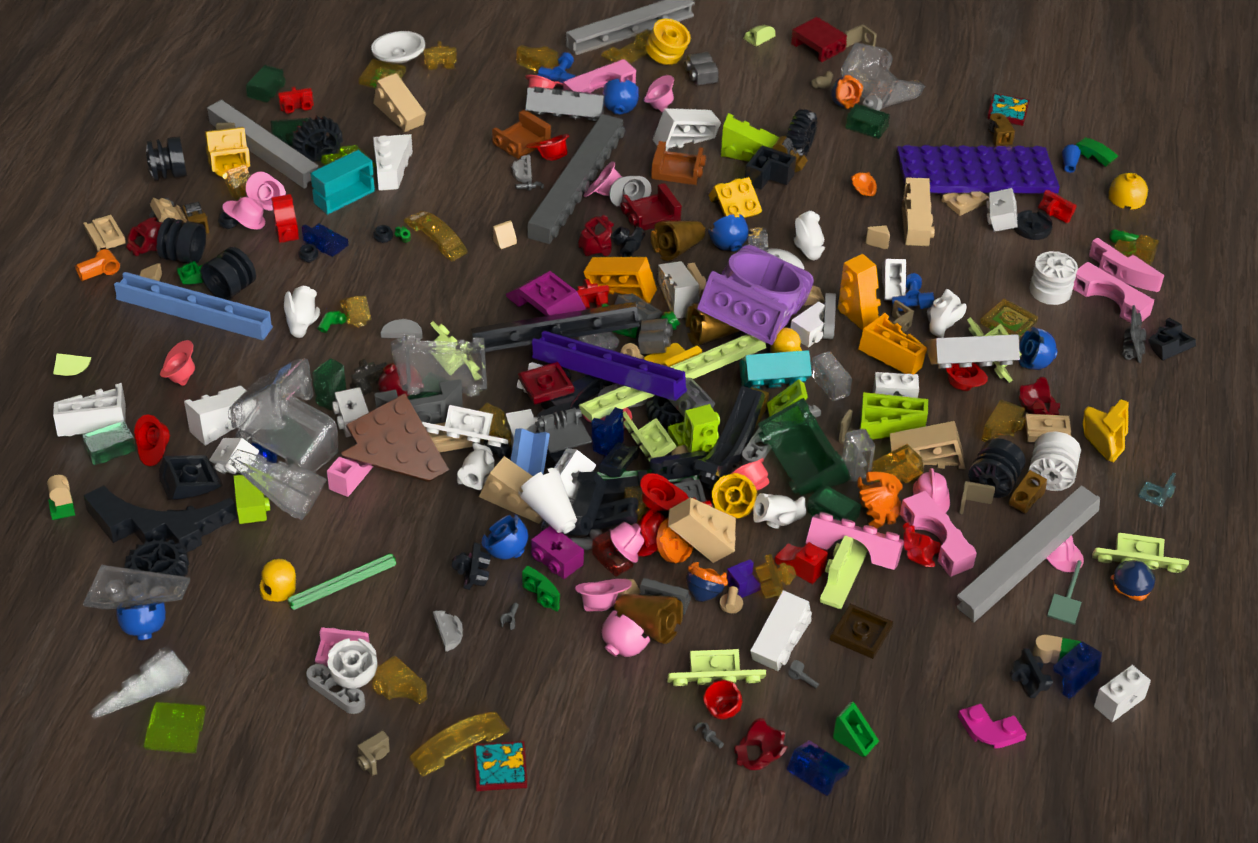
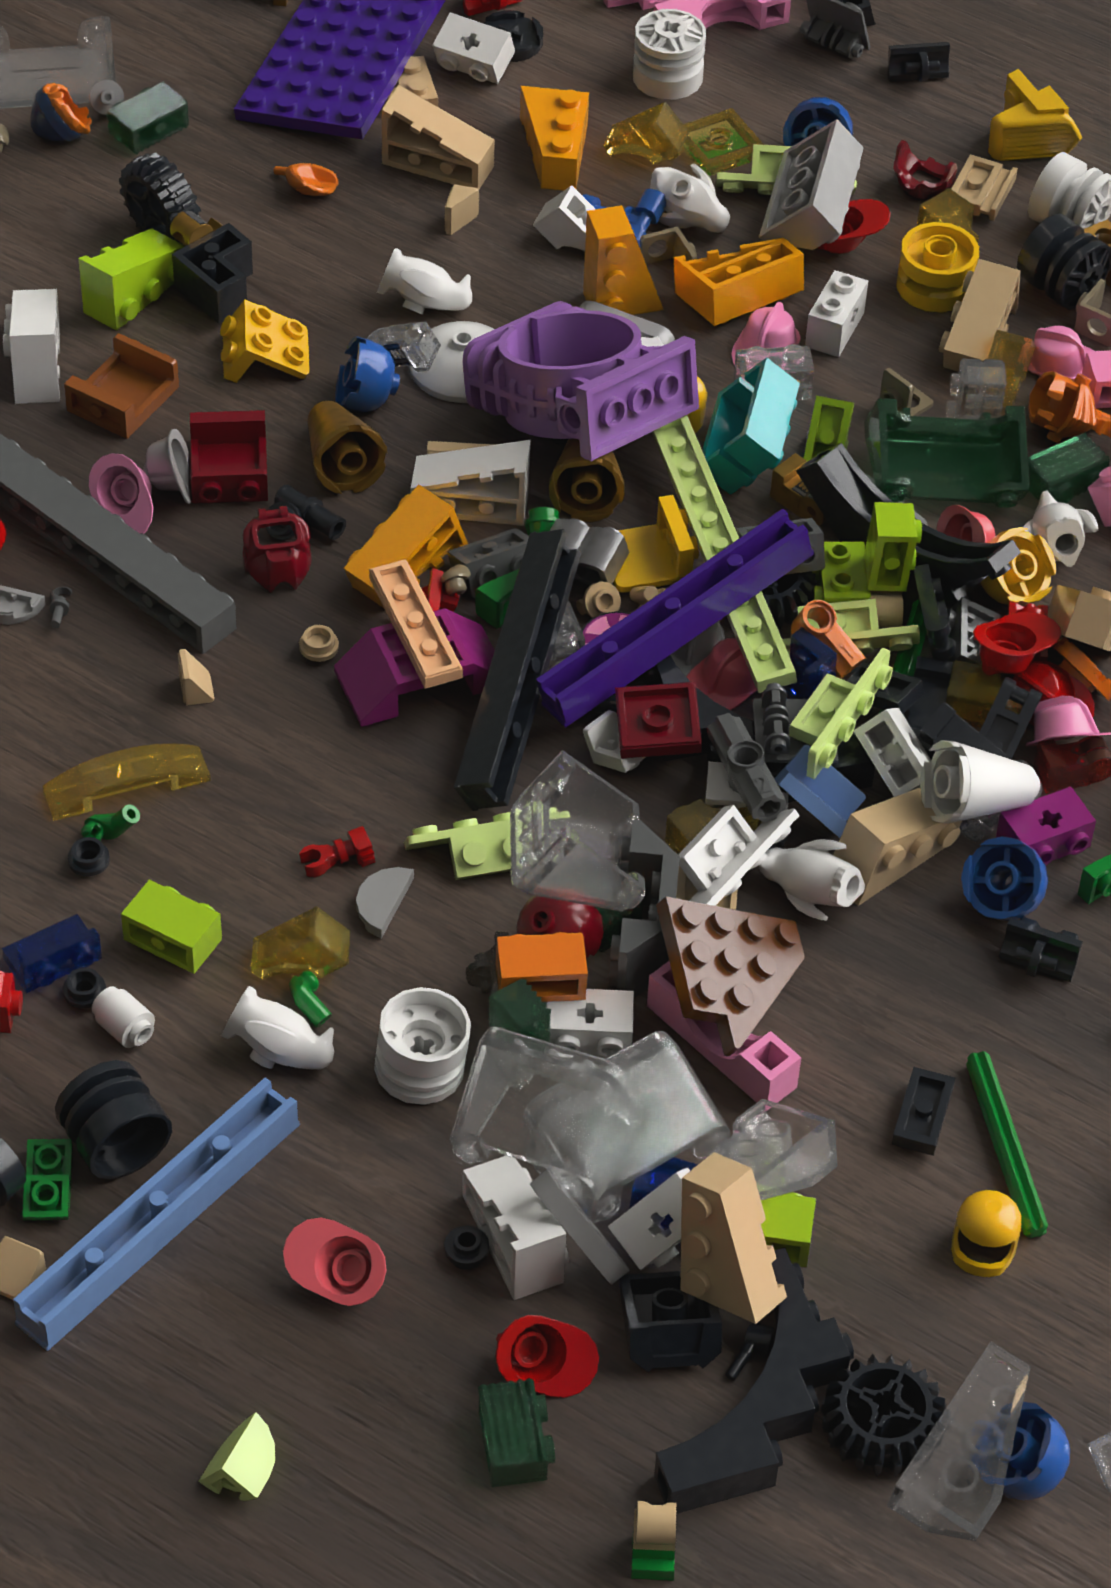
camera: 70 degrees left, 5 degrees up
(89, 413) = (426, 1434): white wedge -> none
(209, 465) = (724, 1240): none -> tan wedge
(213, 442) = (579, 1227): none -> light grey beam
(294, 267) = (123, 1017): none -> white brick
(308, 344) = (422, 1045): none -> white wheel
(348, 543) = (923, 1111): none -> black plate
(349, 265) = (171, 926): none -> lime brick
(362, 375) = (548, 962): none -> orange brick
(428, 311) = (357, 845): none -> red piece
(522, 415) = (746, 767): none -> dark grey piece
(550, 265) = (318, 643): none -> tan plate
(558, 282) = (415, 623): none -> light nougat tile
(572, 437) = (833, 712): none -> yellowish green bracket
(607, 294) = (455, 579): none -> dark tan arm
(627, 427) = (830, 634): none -> orange piece
(863, 370) = (768, 329): none -> bright pink piece
(891, 414) = (897, 335): lime wedge -> none
(958, 256) = (555, 132): none -> light orange wedge
(968, 415) = (935, 265): none -> yellow wheel
(985, 290) = (650, 134): none -> clear yellow arch
(1135, 379) = (918, 61): none -> black hips

